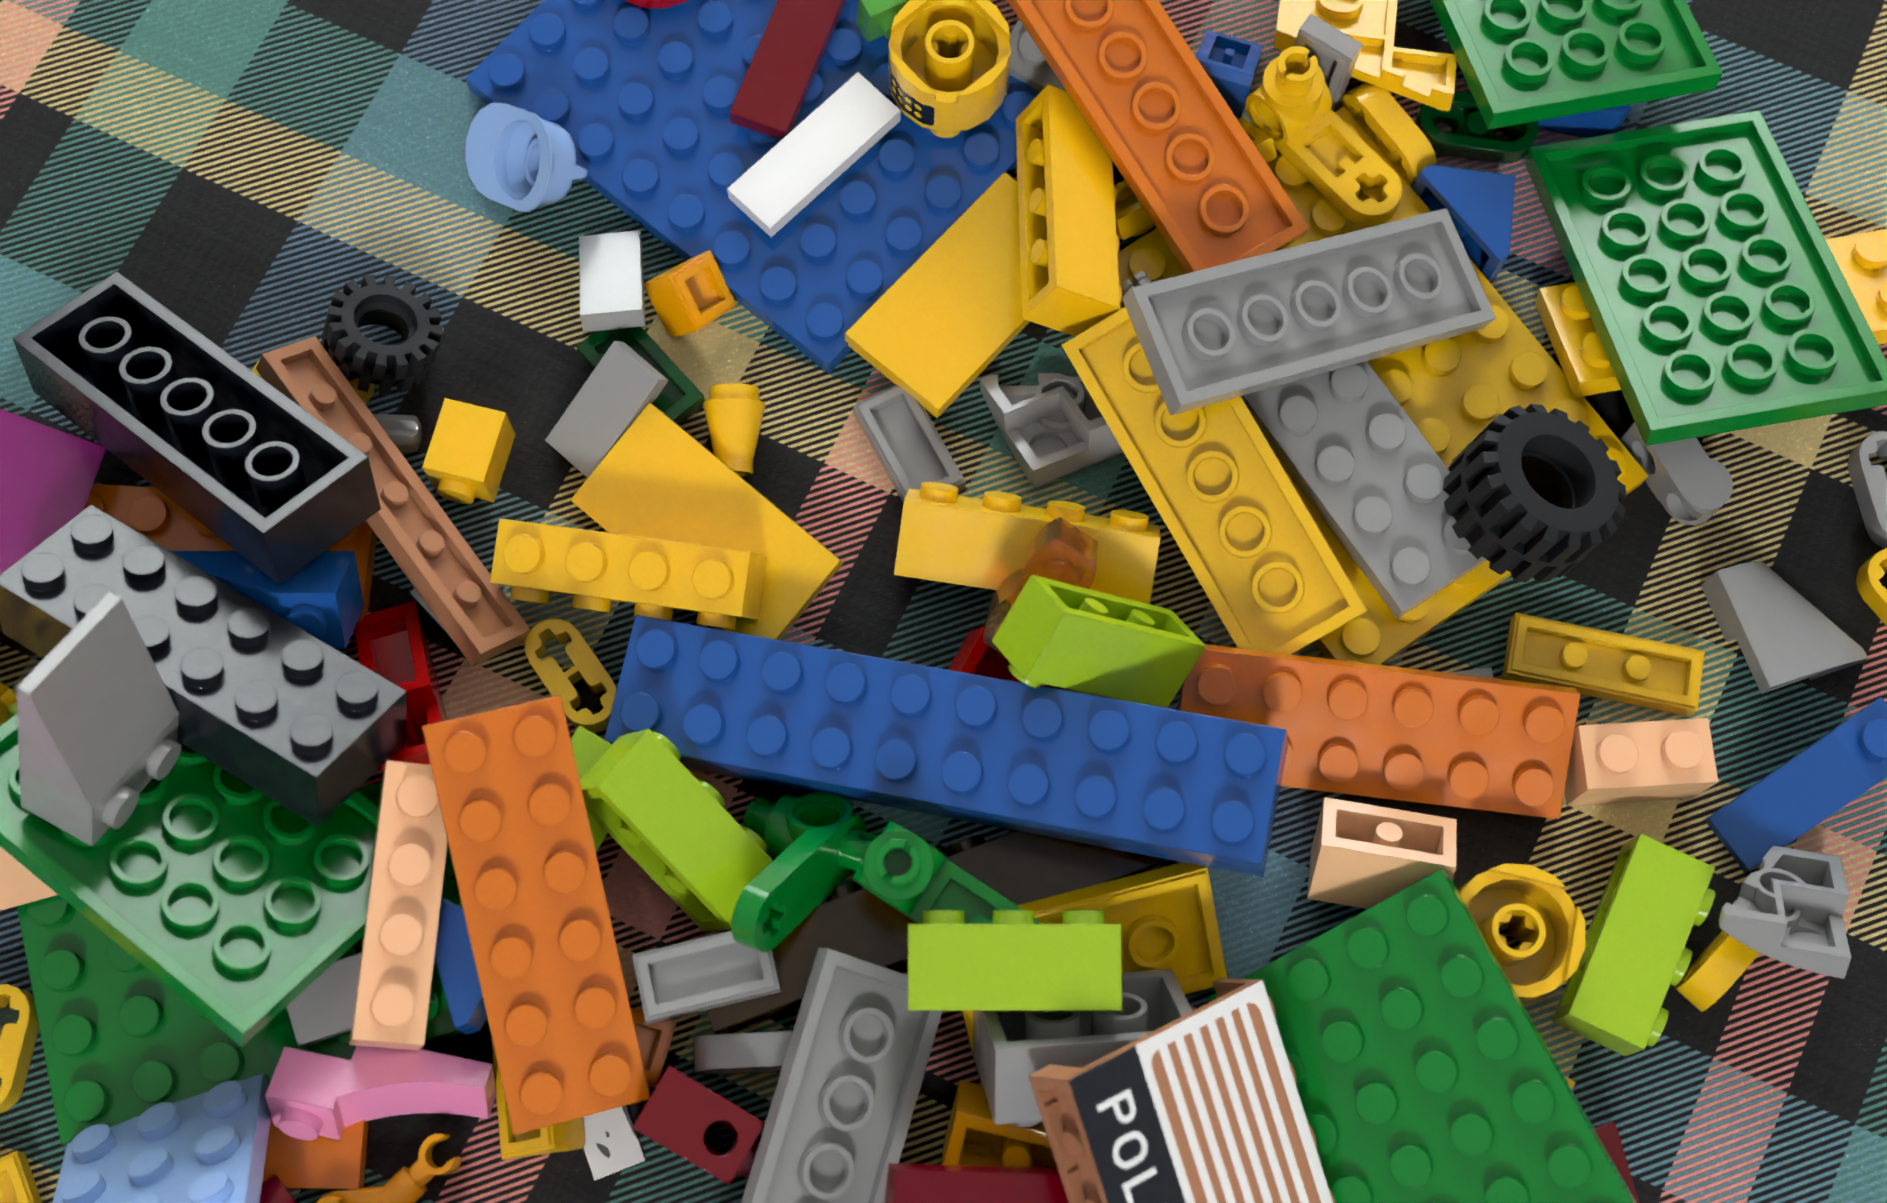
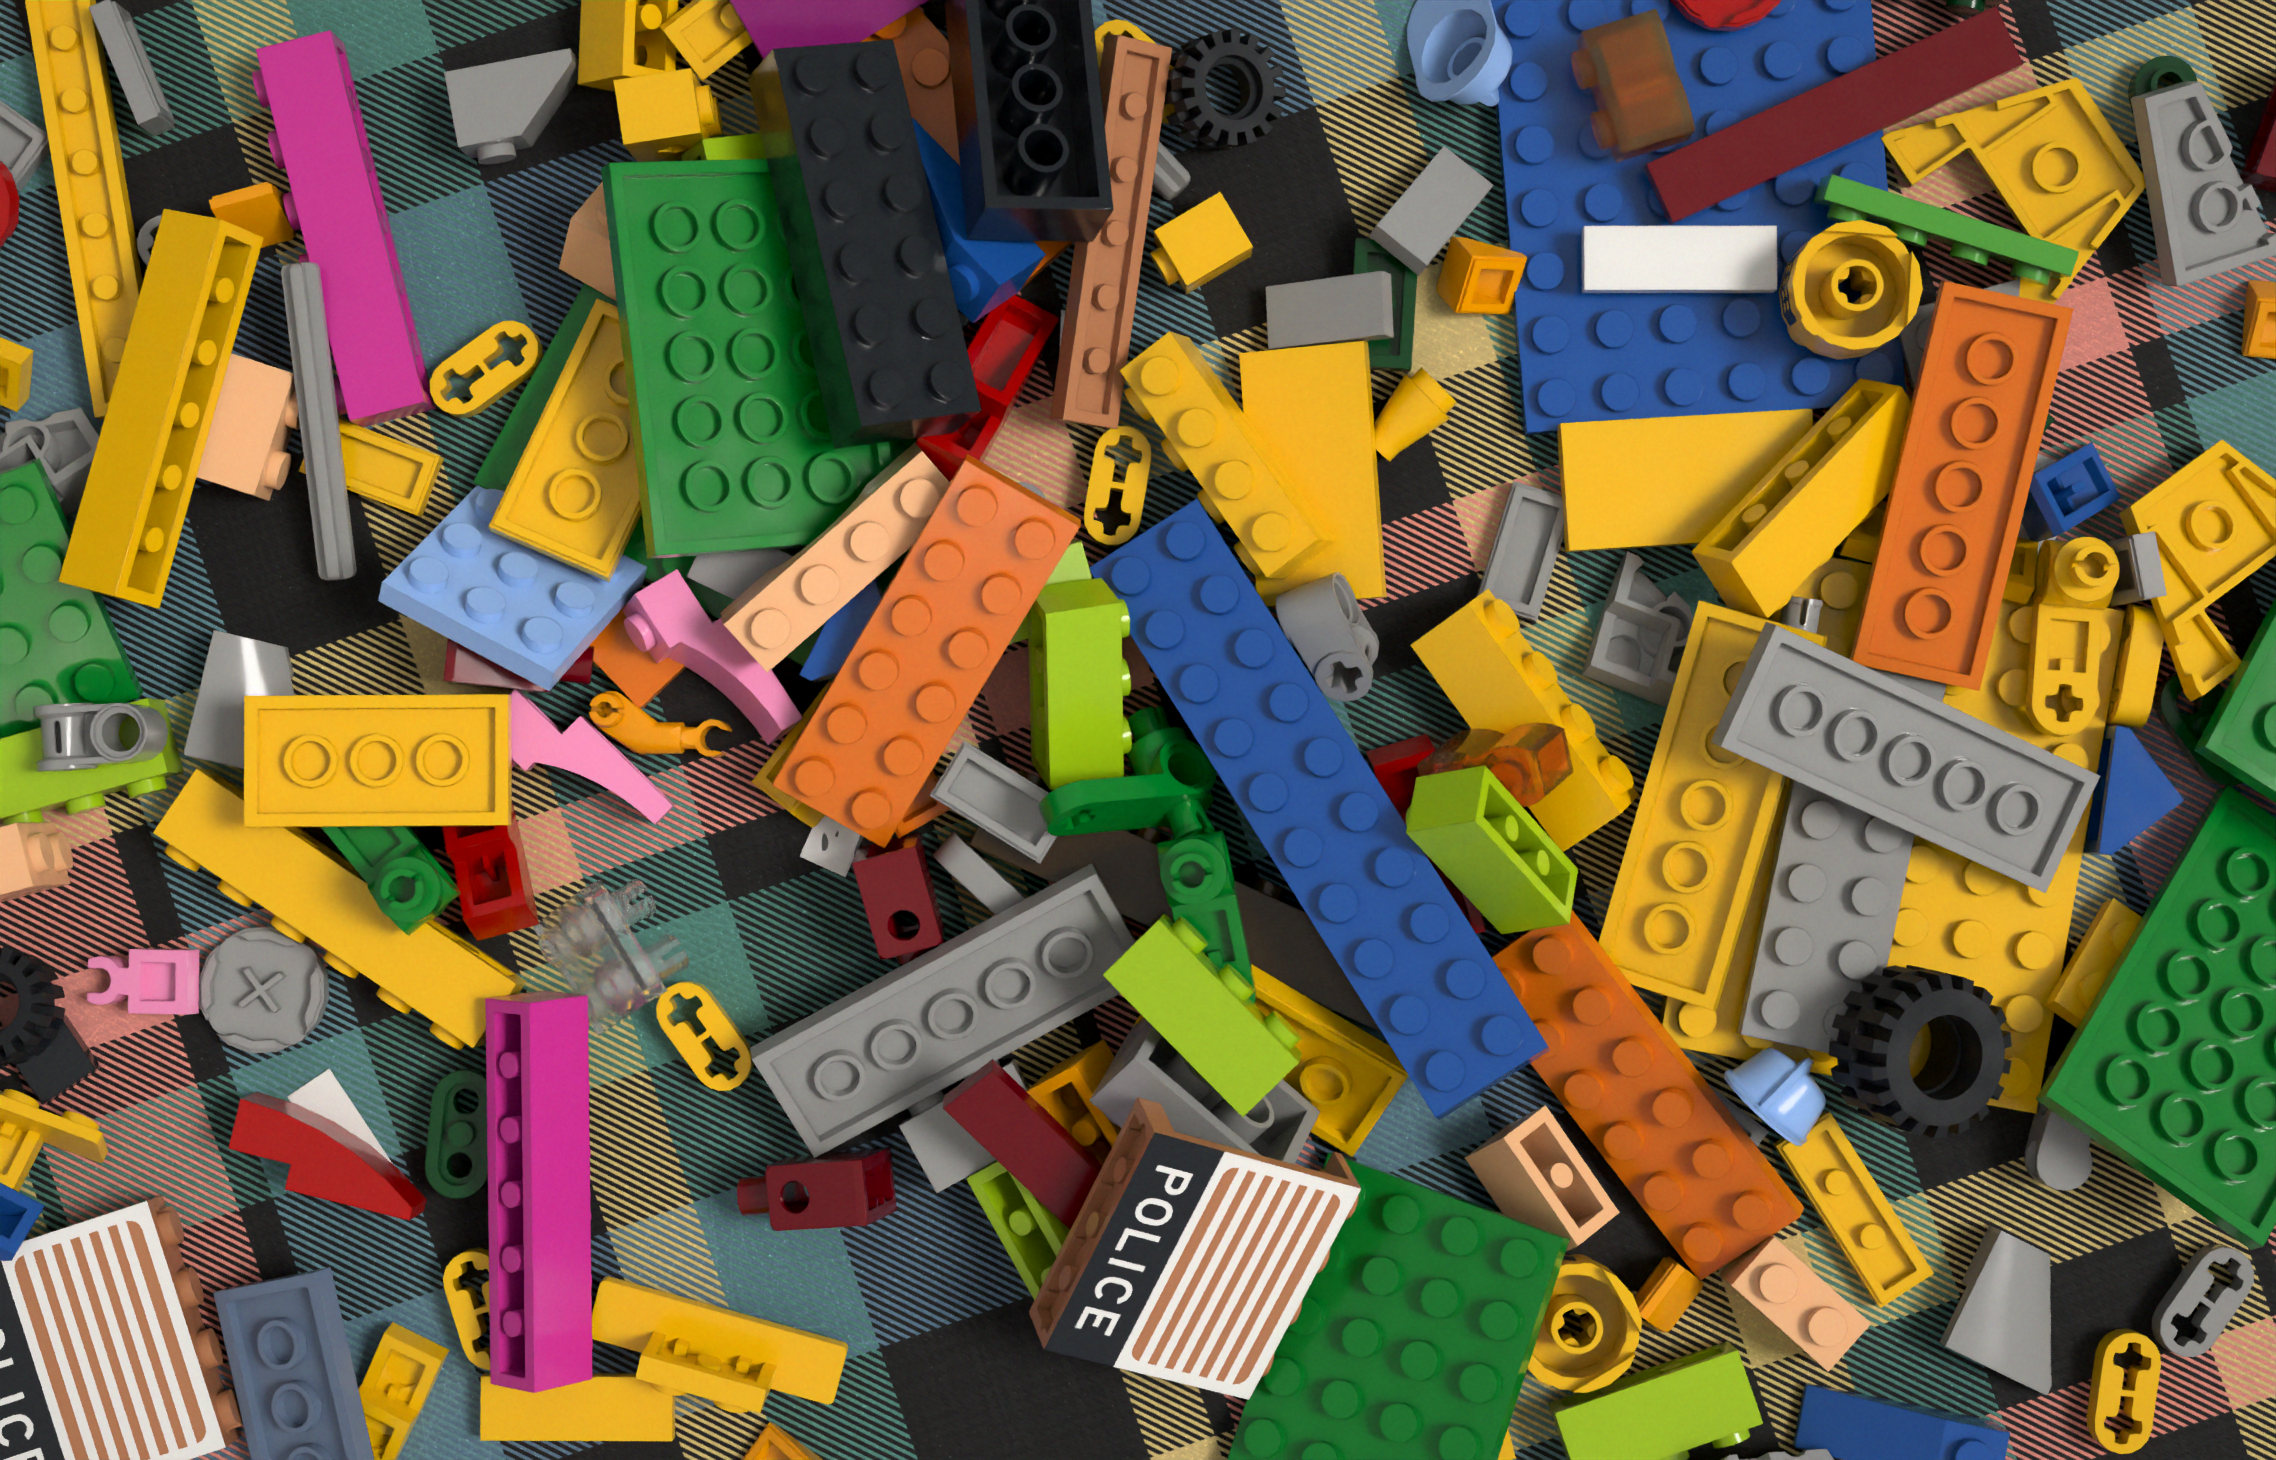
camera: 50 degrees right, 15 degrees up
(94, 725) = (746, 247): light grey slope -> none
(133, 1043) = (578, 474): none -> yellow tile
(669, 71) = (1633, 85): none -> clear orange brick
(825, 616) = (1330, 635): none -> light grey piece
(1472, 625) = (1779, 1092): none -> light blue piece
(1547, 847) = (1667, 1294): none -> light orange slope

